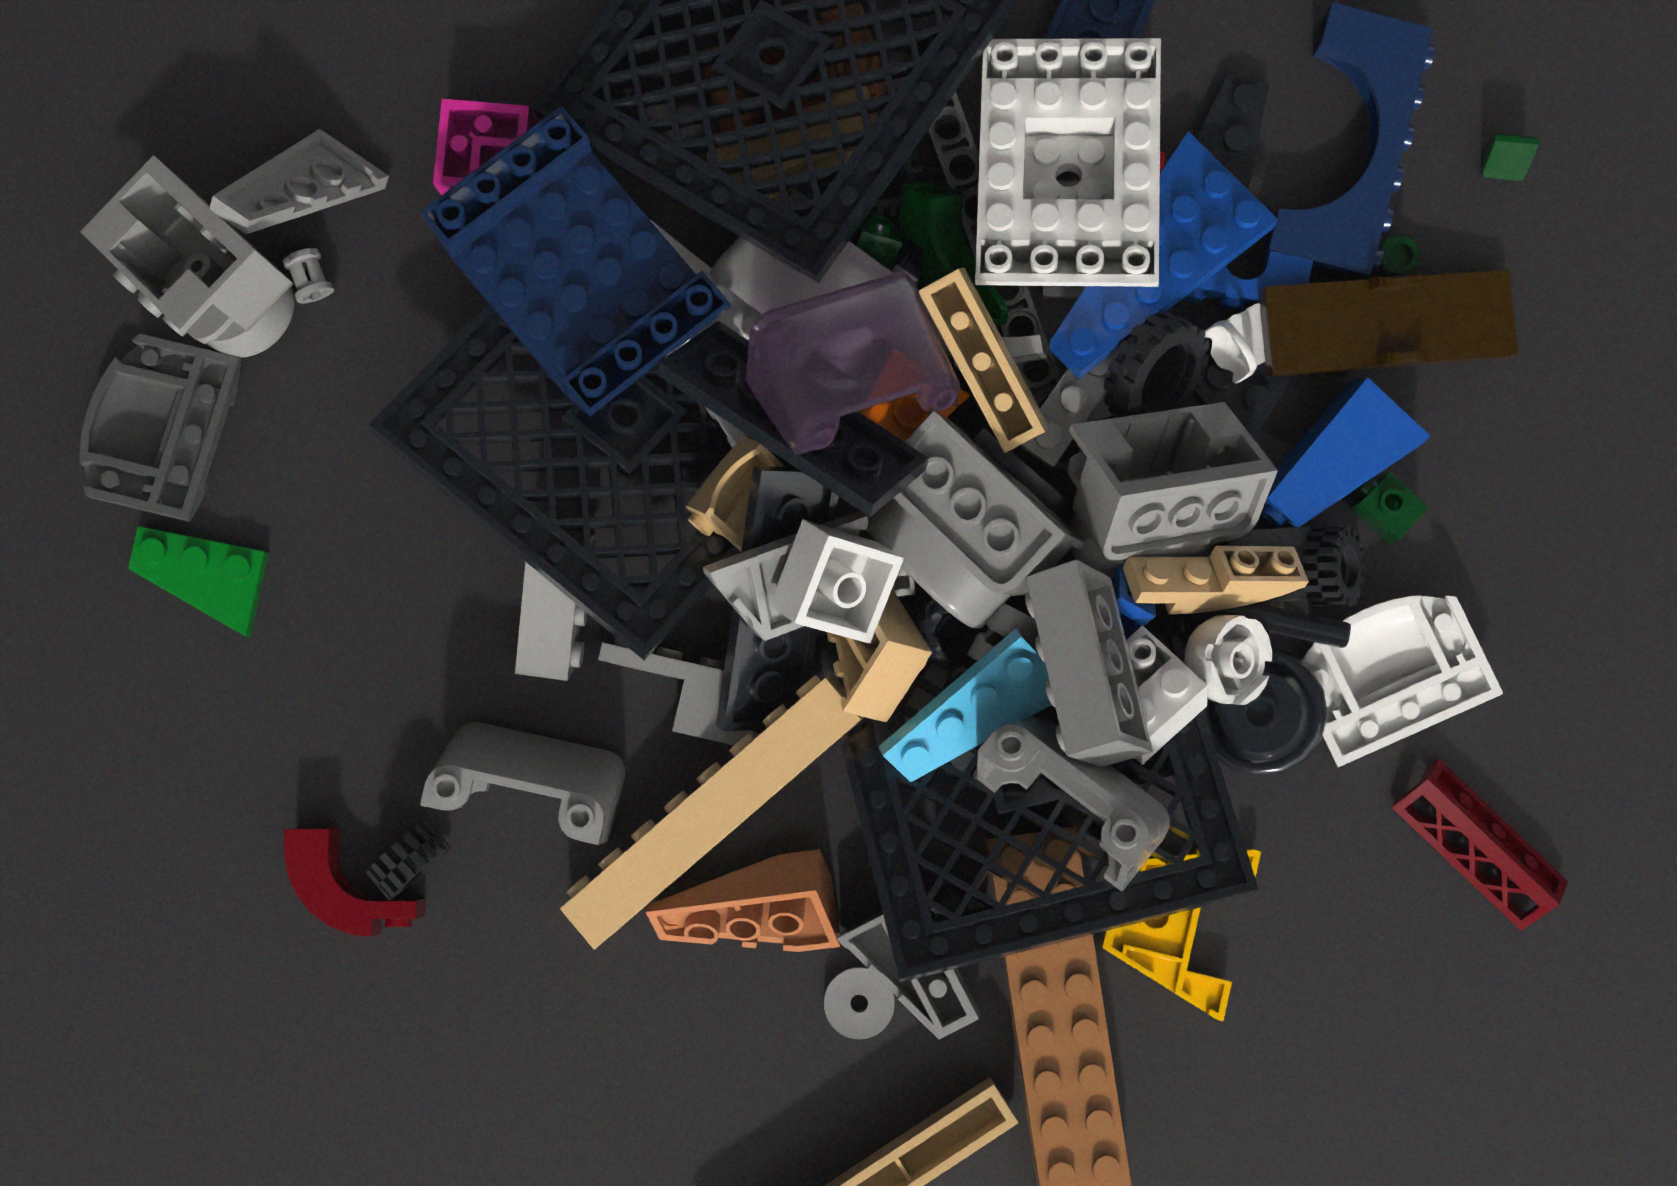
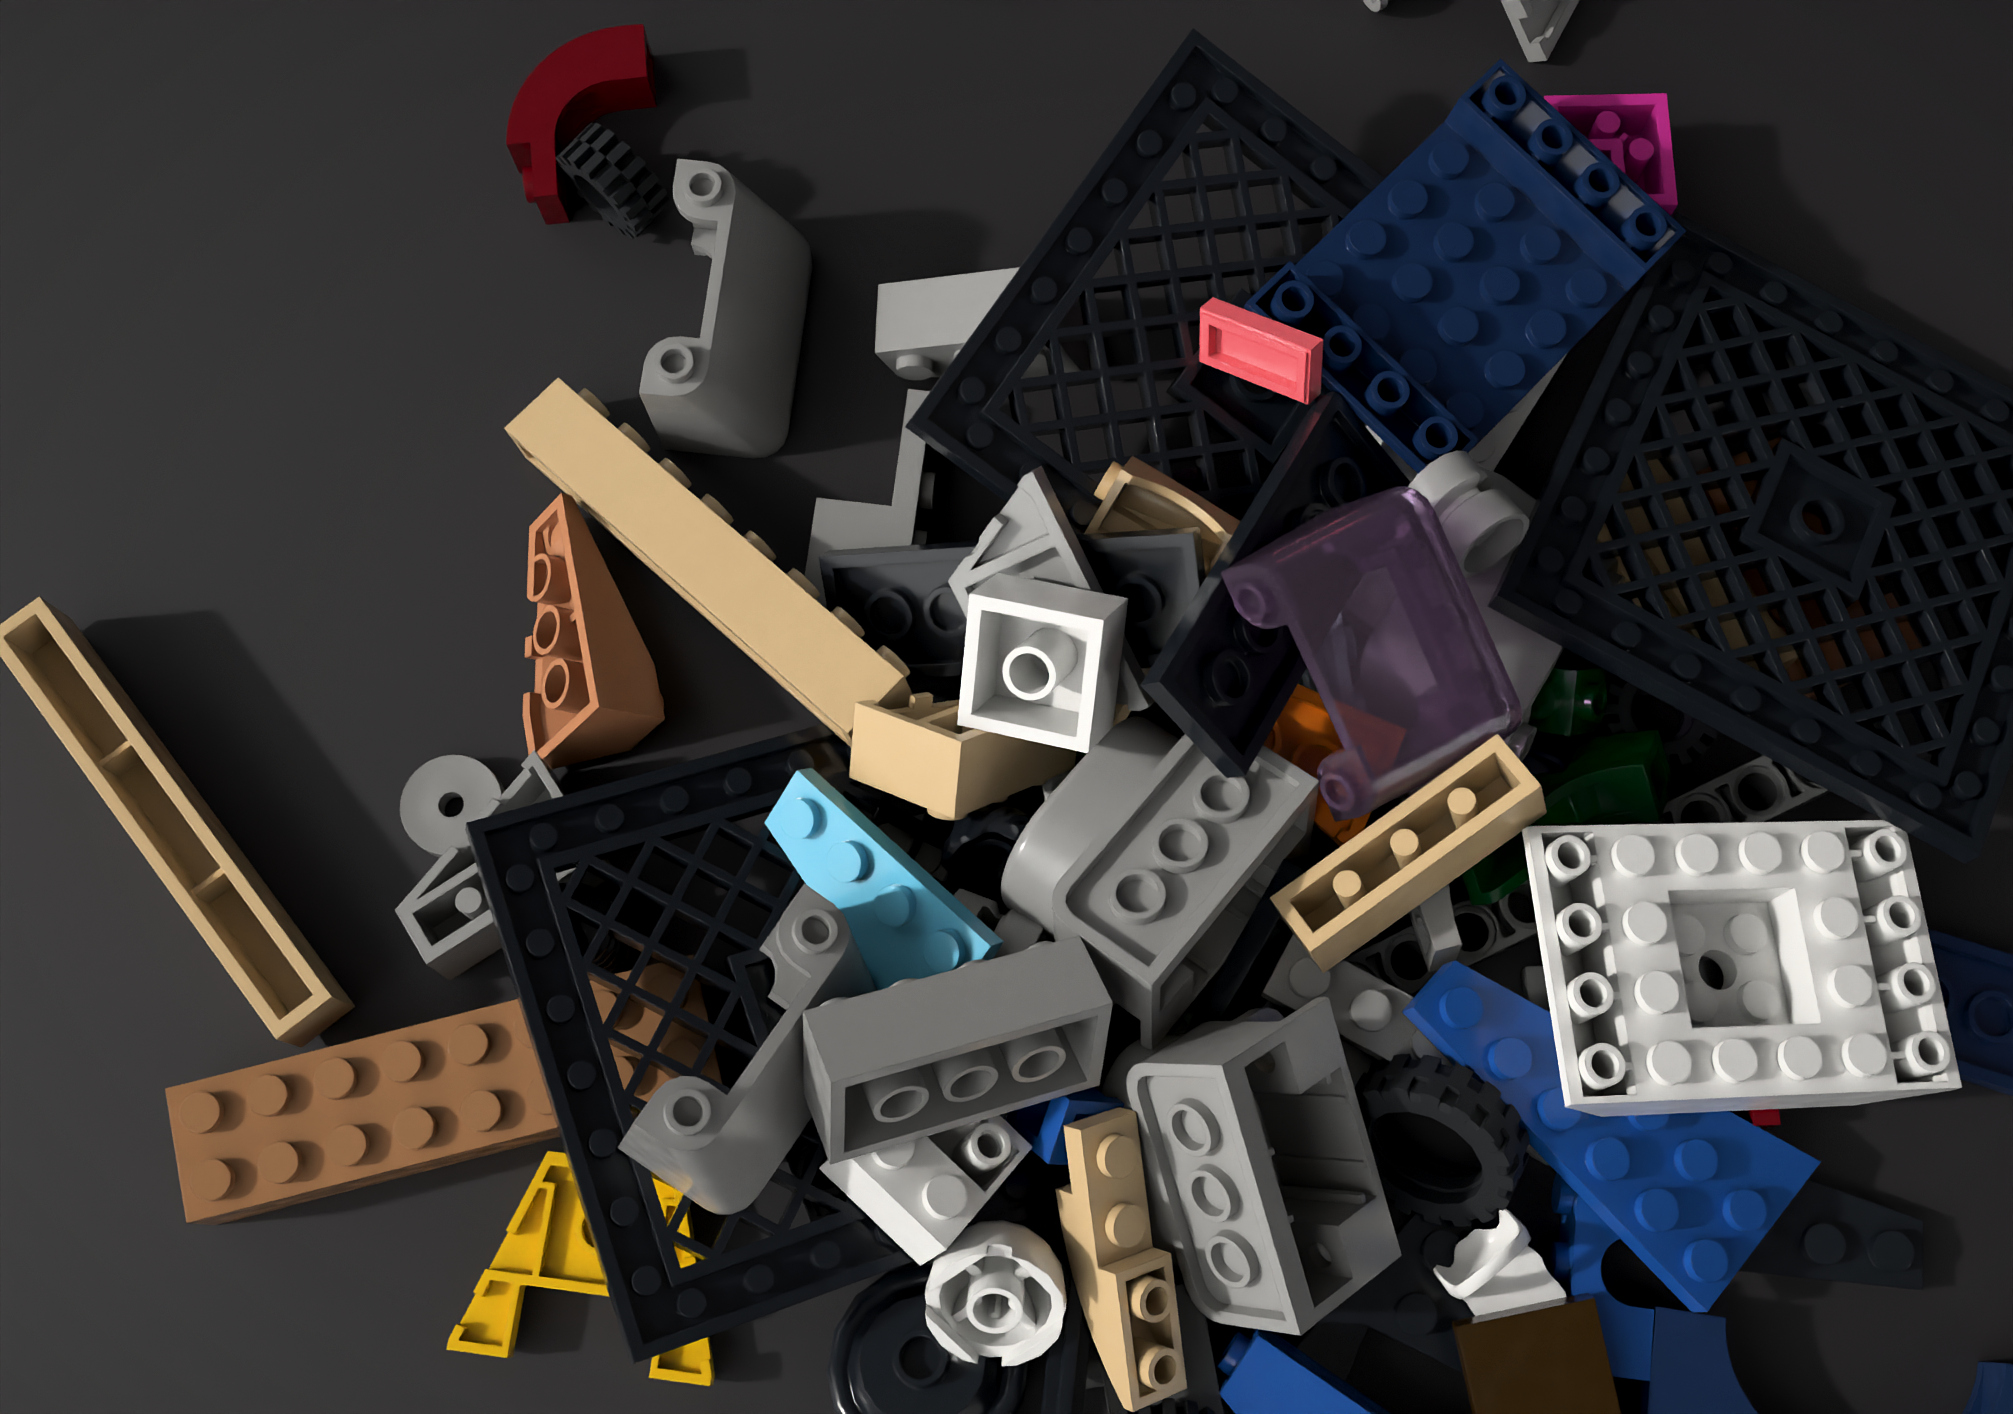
camera: 80 degrees right, 10 degrees down
(621, 409) = (1261, 350): none -> coral tile
(761, 286) = (1476, 518): none -> light grey wheel

